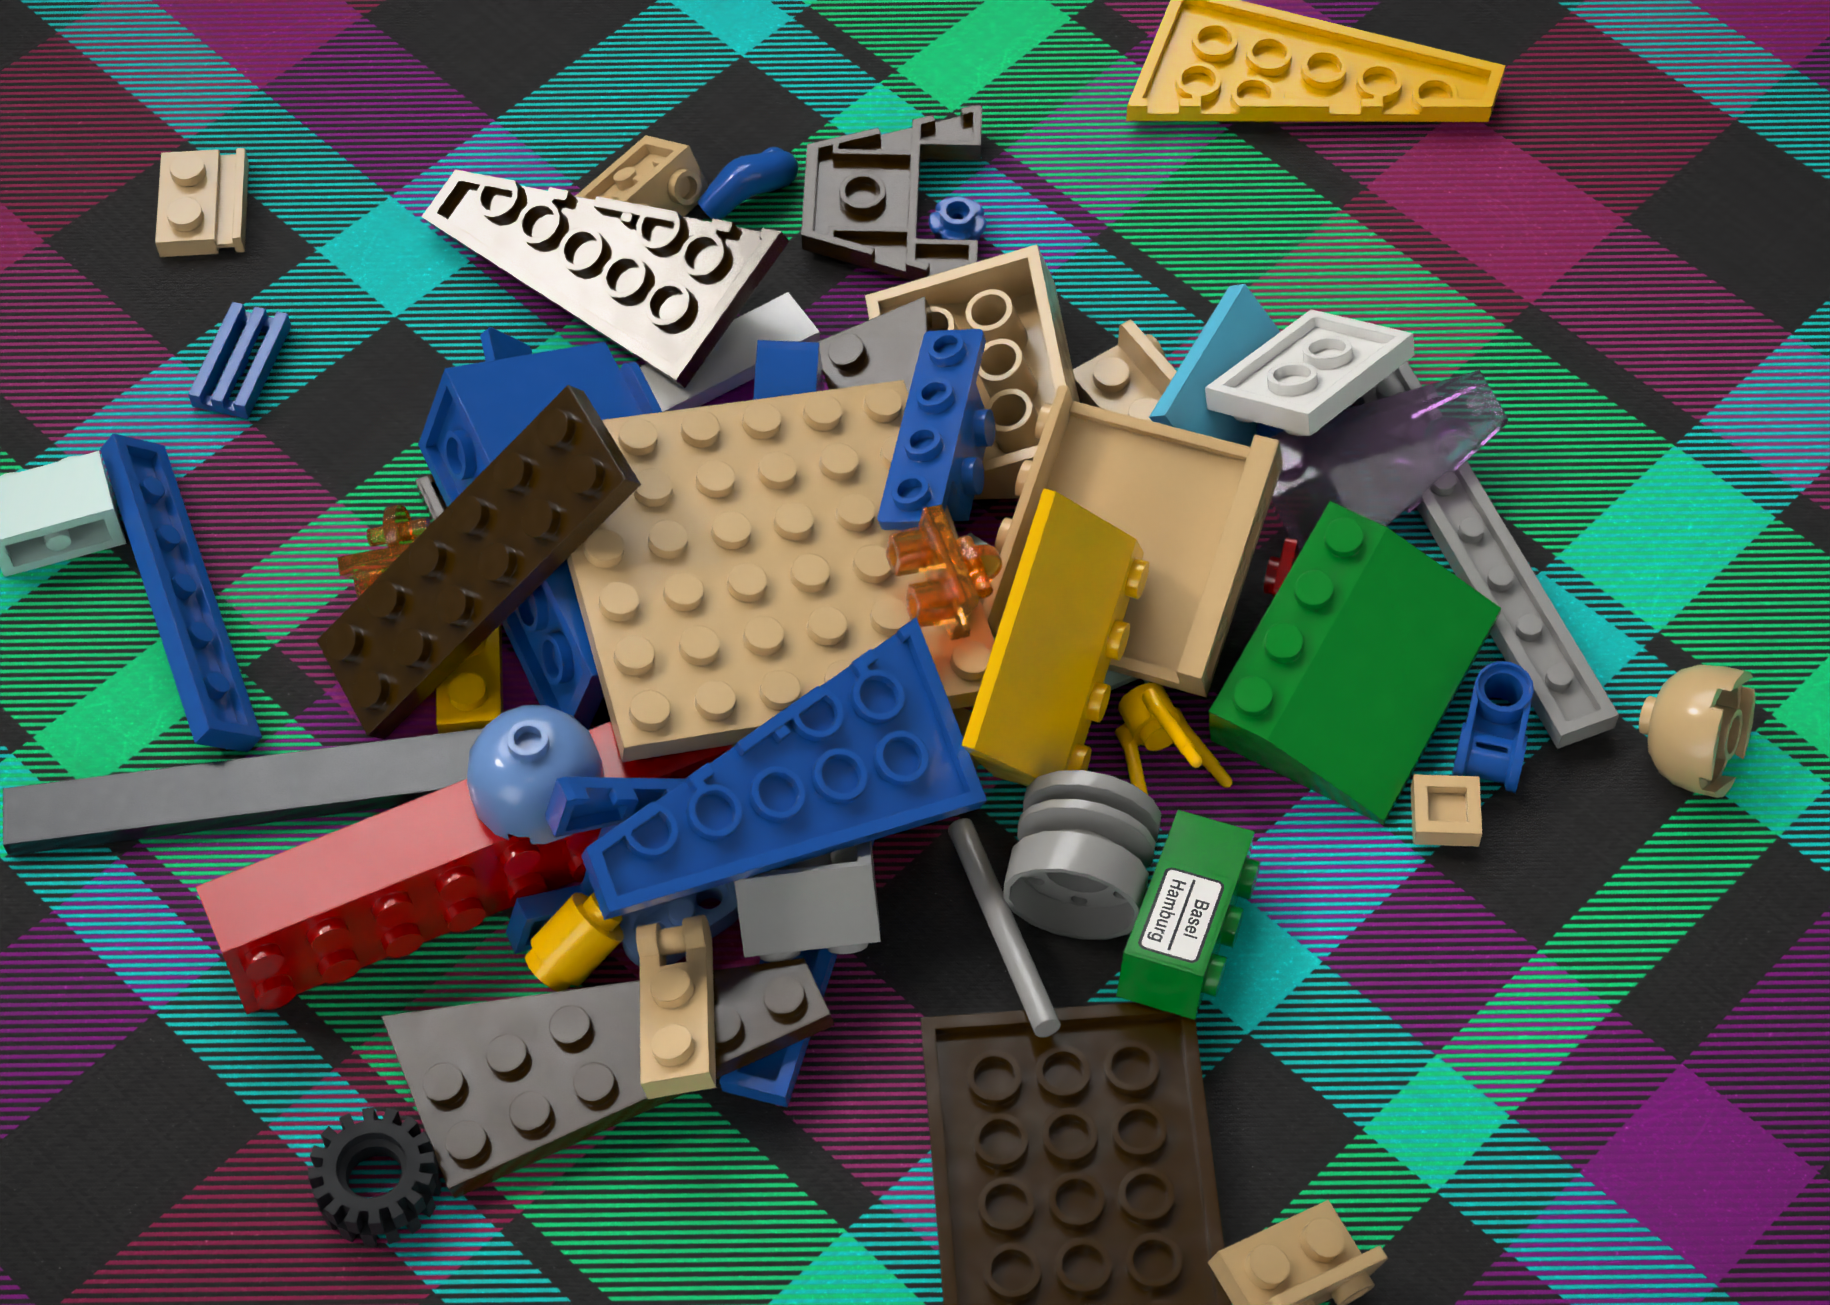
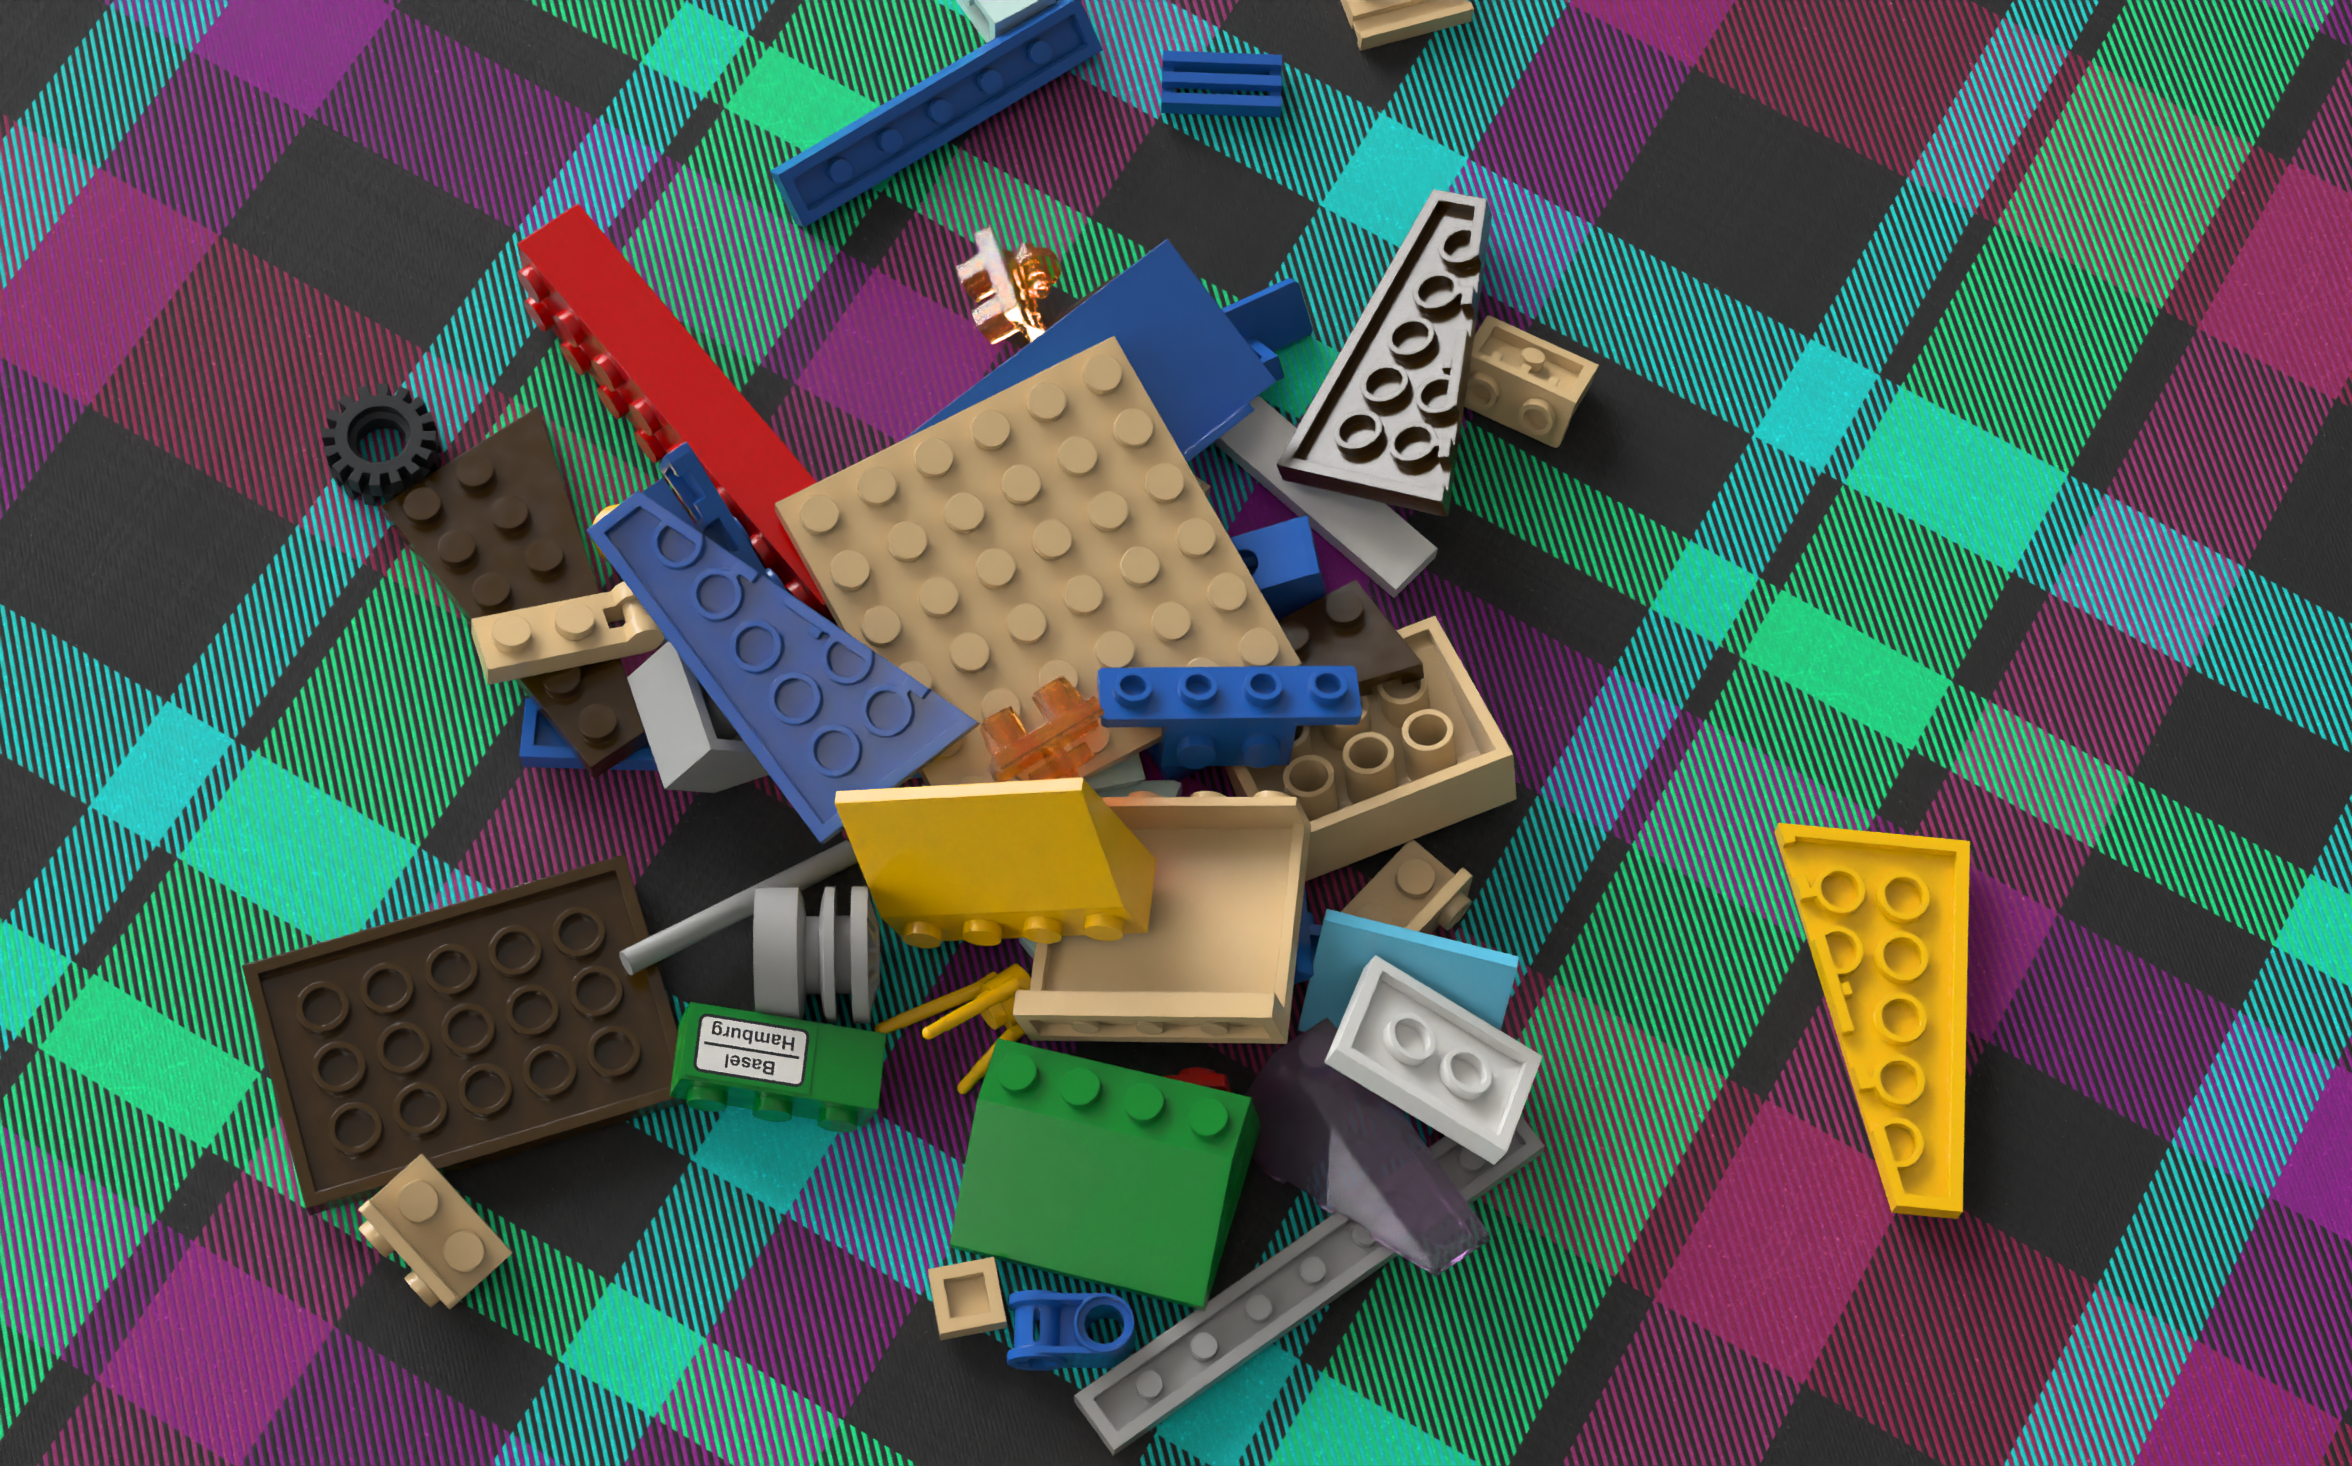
camera: 70 degrees right, 10 degrees up
(232, 792) = (755, 253): tile -> none
(473, 690) = (914, 381): yellow plate -> none
(477, 562) = (977, 334): dark brown plate -> none
(518, 764) = (745, 438): medium blue cylinder -> none
(746, 178) = (1572, 477): blue arm -> none
(866, 196) = (1588, 594): wing -> none
(957, 219) = (1581, 706): blue plate -> none

